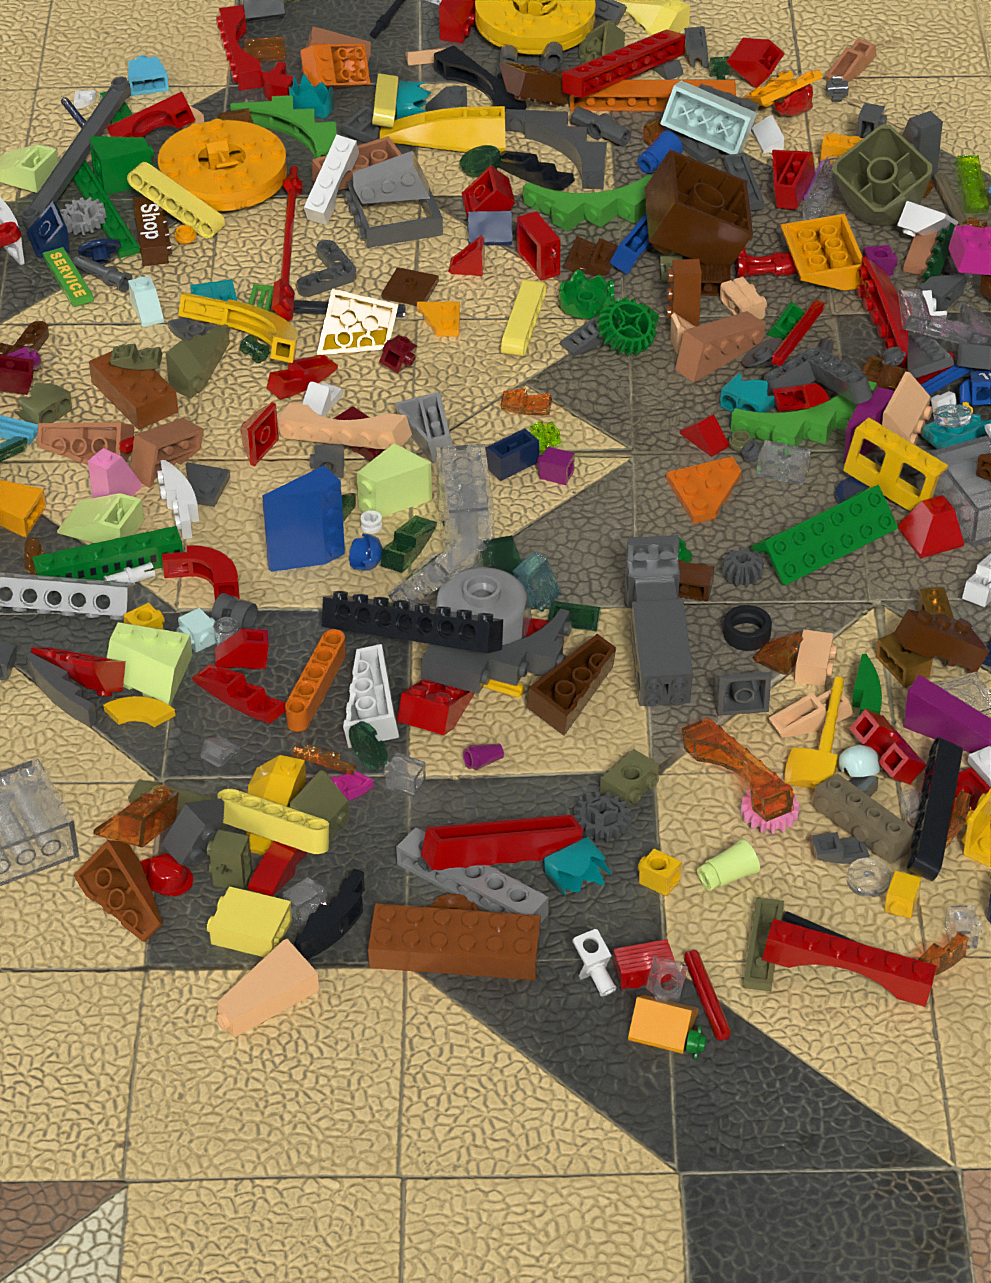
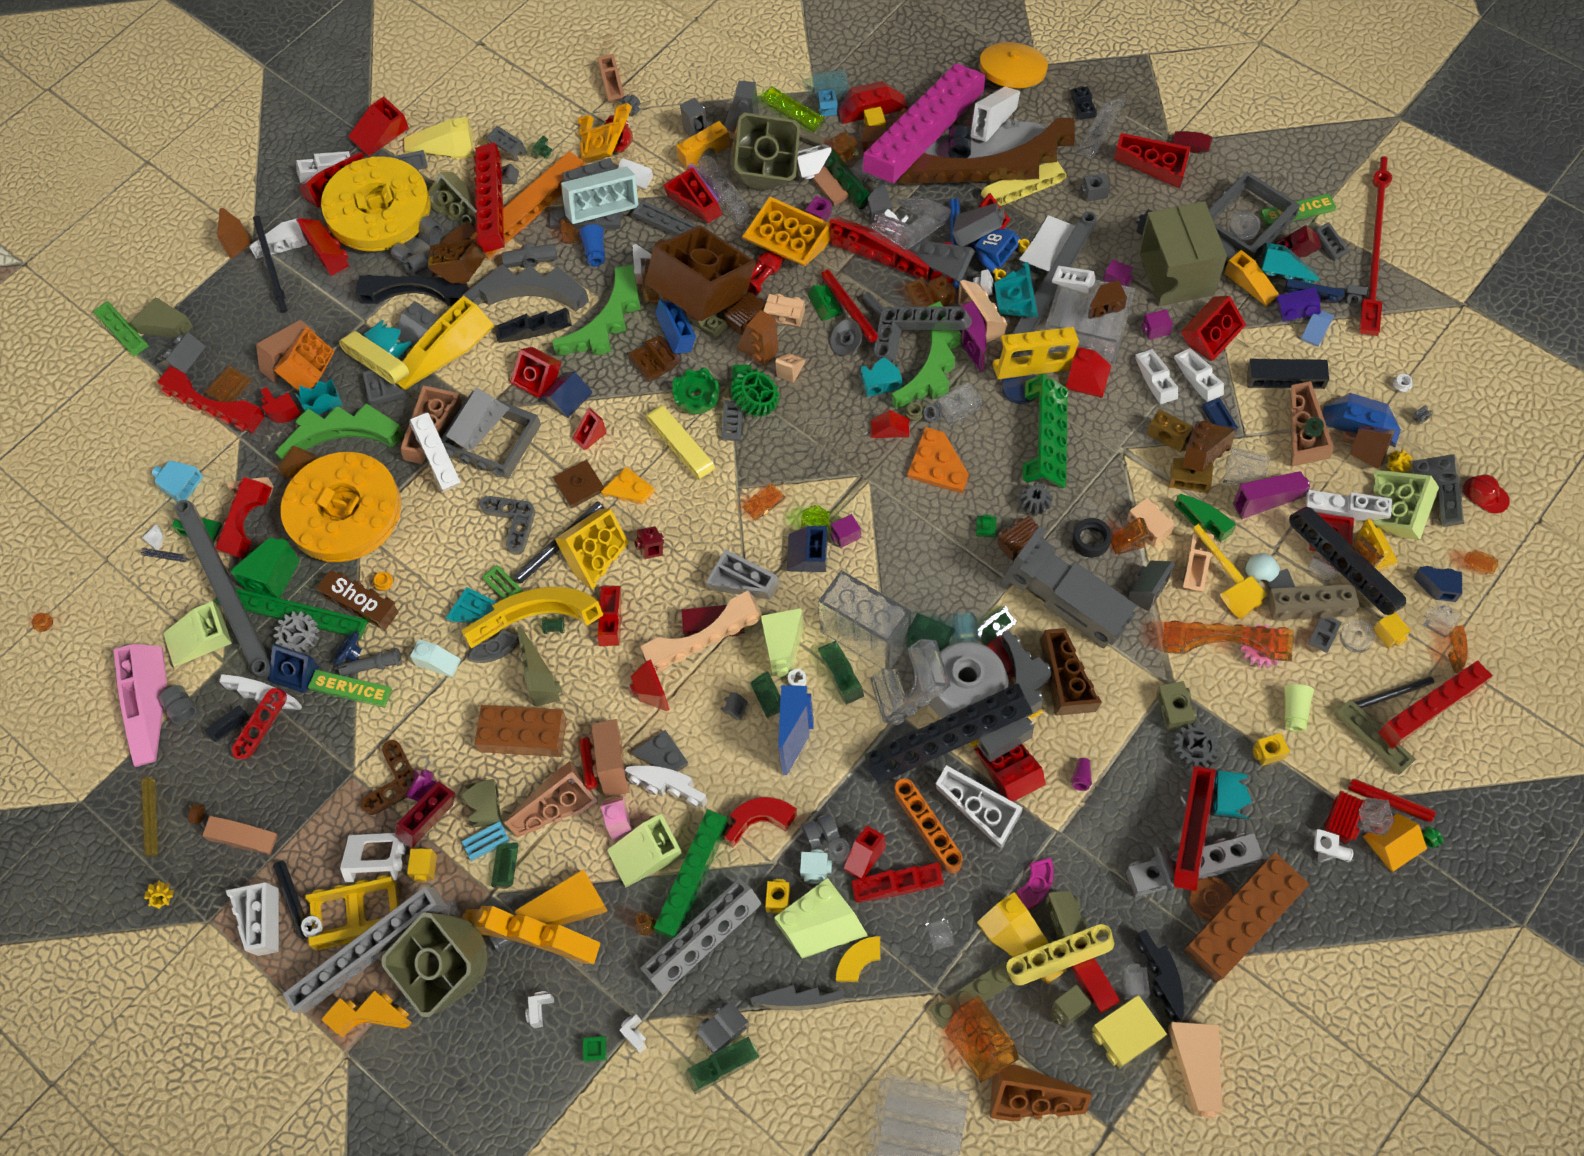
camera: 45 degrees left, 20 degrees up
(88, 670) = (791, 969): red wedge -> none
(131, 358) = (509, 713): olive slope -> none
(132, 575) = (716, 871): white pin -> none
(167, 875) = (1036, 1053): red piece -> none
(176, 200) = (351, 563): light yellow beam -> none
(193, 830) = (1033, 1011): dark grey slope -> none
(282, 292) = (522, 567): red bar -> none
(322, 397) = (645, 622): white slope -> none
(328, 760) = (1018, 878): clear orange plate -> none
(331, 457) = (715, 662): dark grey brick -> none
(365, 552) = (831, 706): blue hair -> none
(366, 746) = (1028, 841): clear green tile -> none
(405, 774) = (1064, 835): clear brick -> none
(421, 56) = (341, 296): light nougat slope -> none
(479, 159) = (492, 348): clear green tile -> none
(536, 244) = (623, 381): red window -> none
(717, 343) = (818, 355): nougat wedge -> none
(755, 59) = (560, 124): red slope -> none
(799, 396) = (915, 352): red brick -> none
(893, 356) = (926, 274): dark grey plate -> none
(897, 756) = (1281, 545): red arch -> none
(952, 415) = (1004, 285): clear piece -> none

